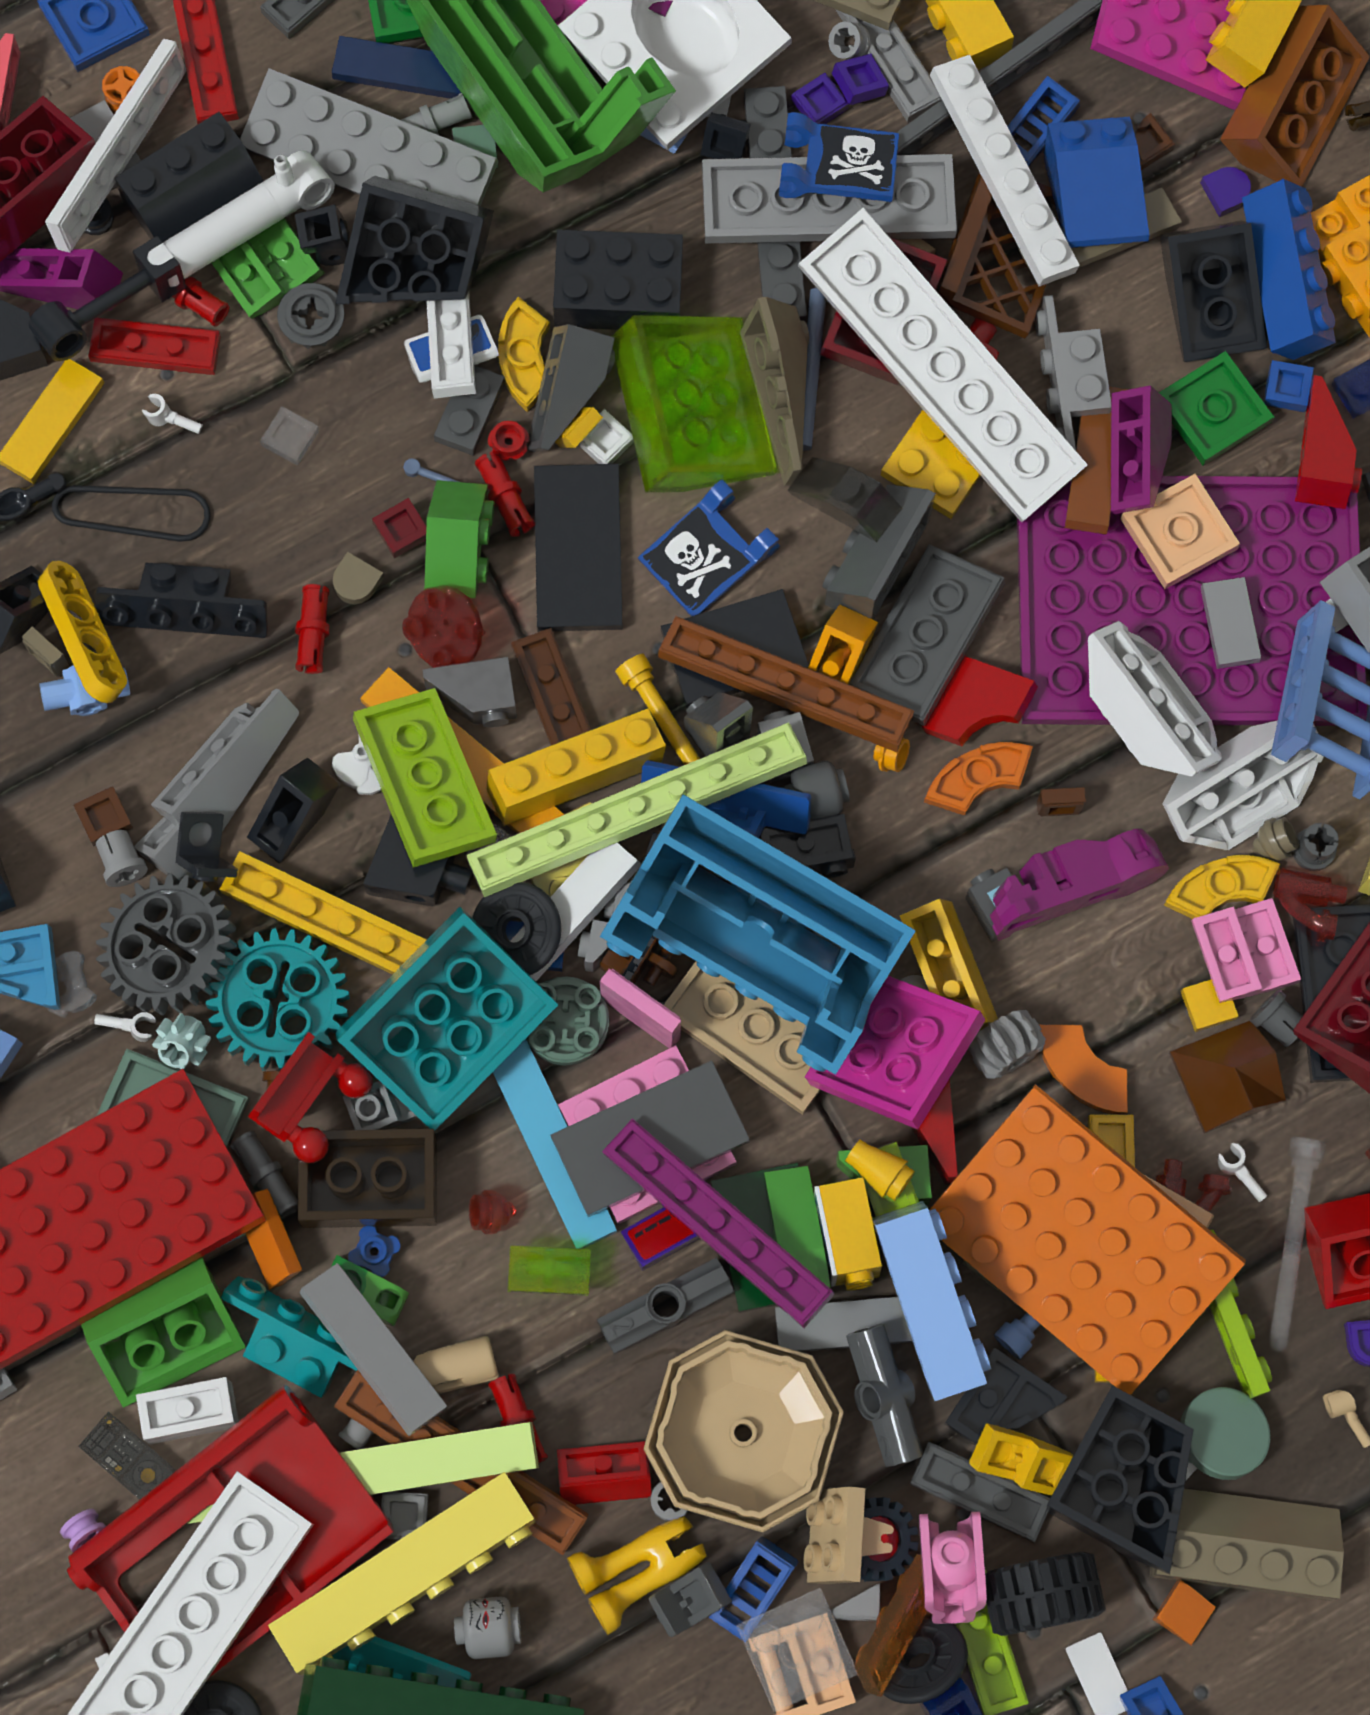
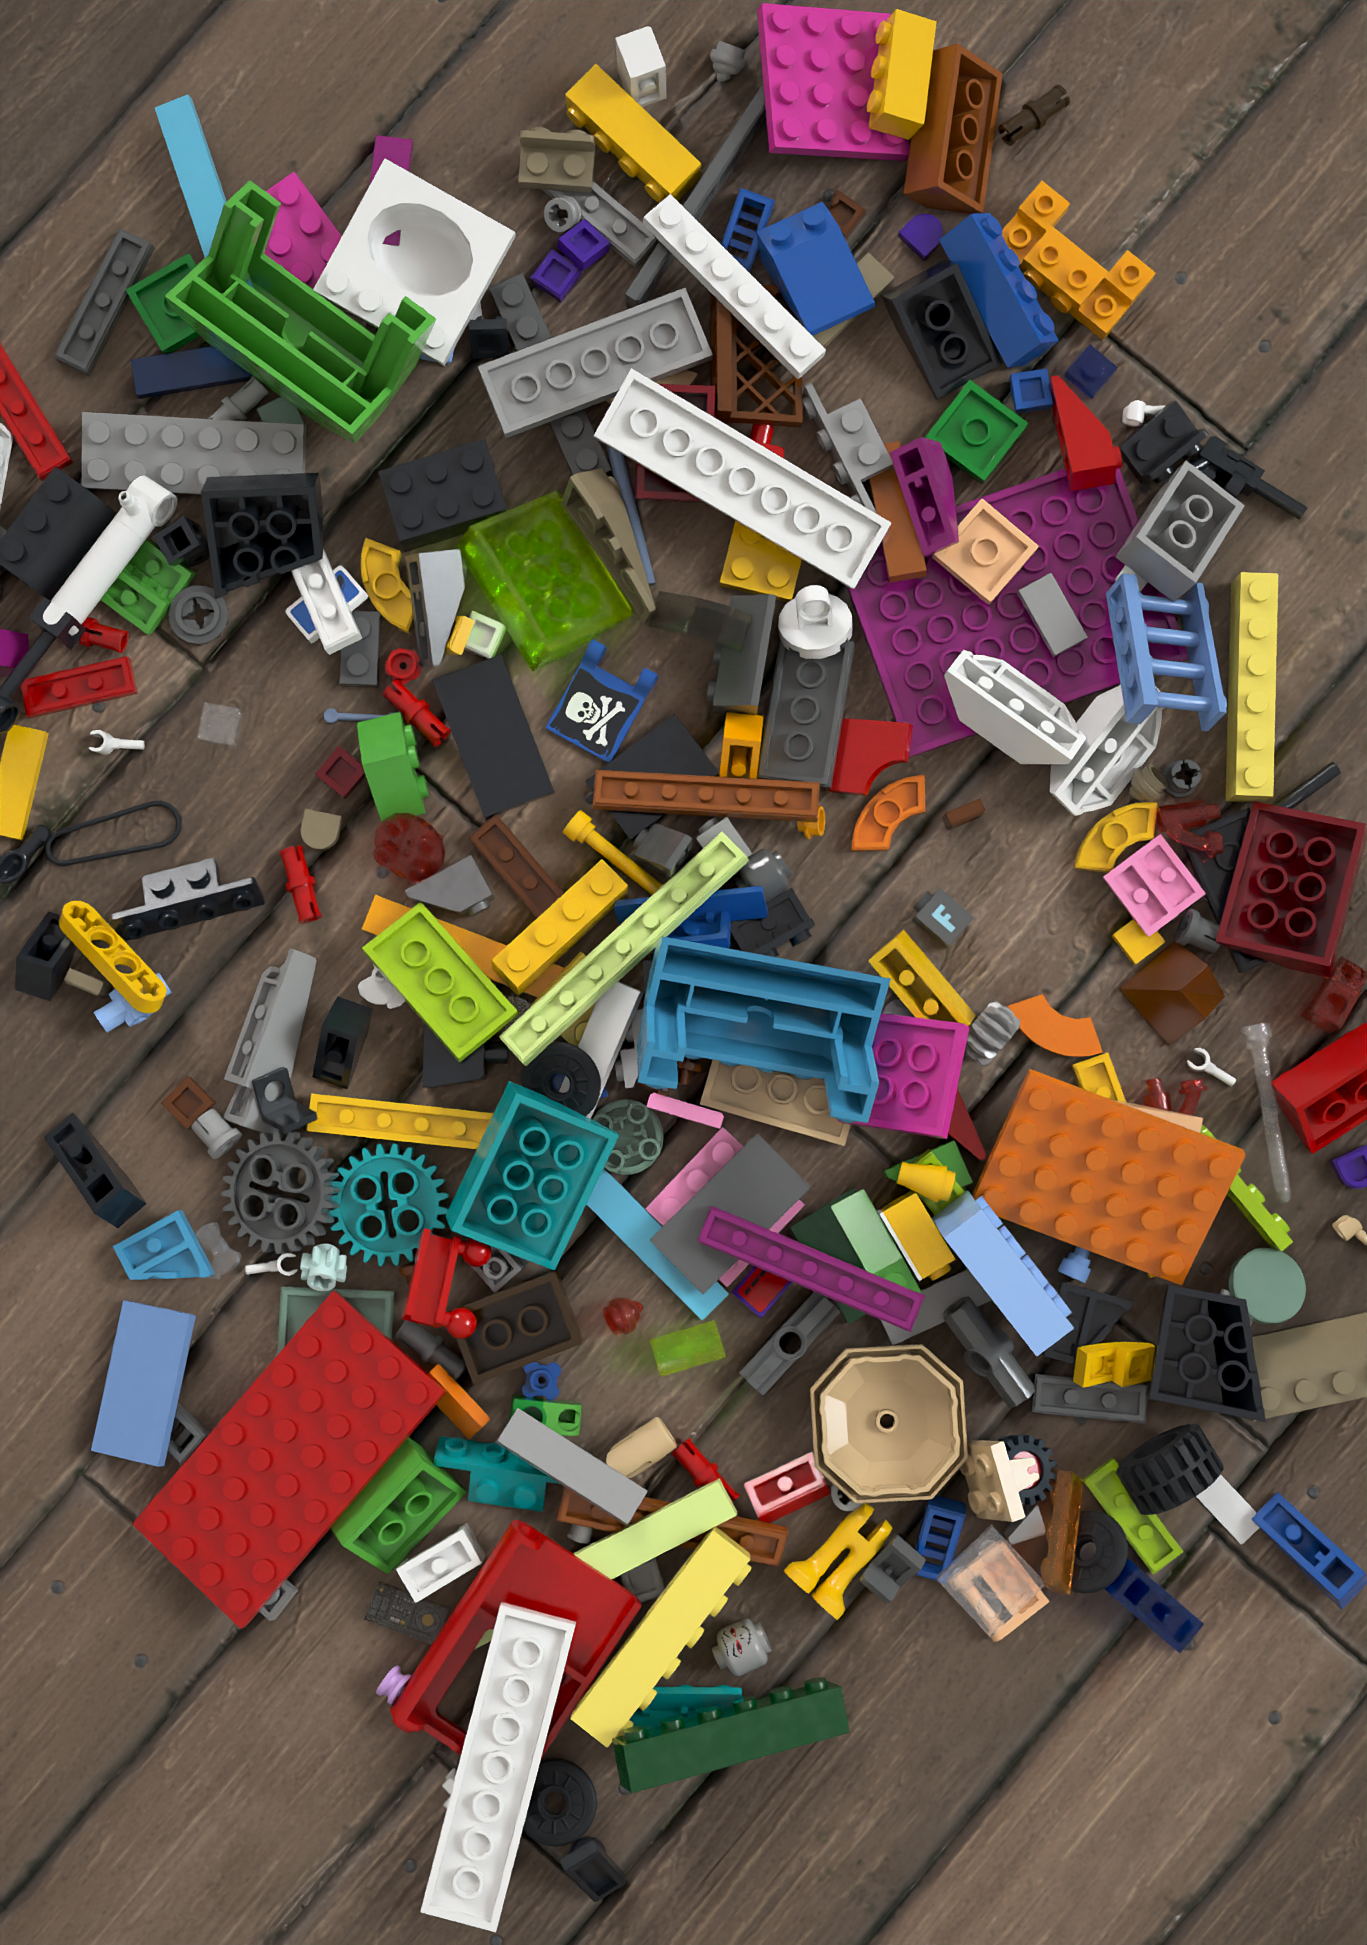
camera: 15 degrees left, 10 degrees up
(839, 161) = (595, 327): flag -> none
(953, 1570) = (1092, 1473): bright pink piece -> none
(969, 543) = (815, 623): none -> white tile
(1076, 878) = (998, 878): magenta piece -> none
(1184, 1612) = (1279, 1437): orange slope -> none

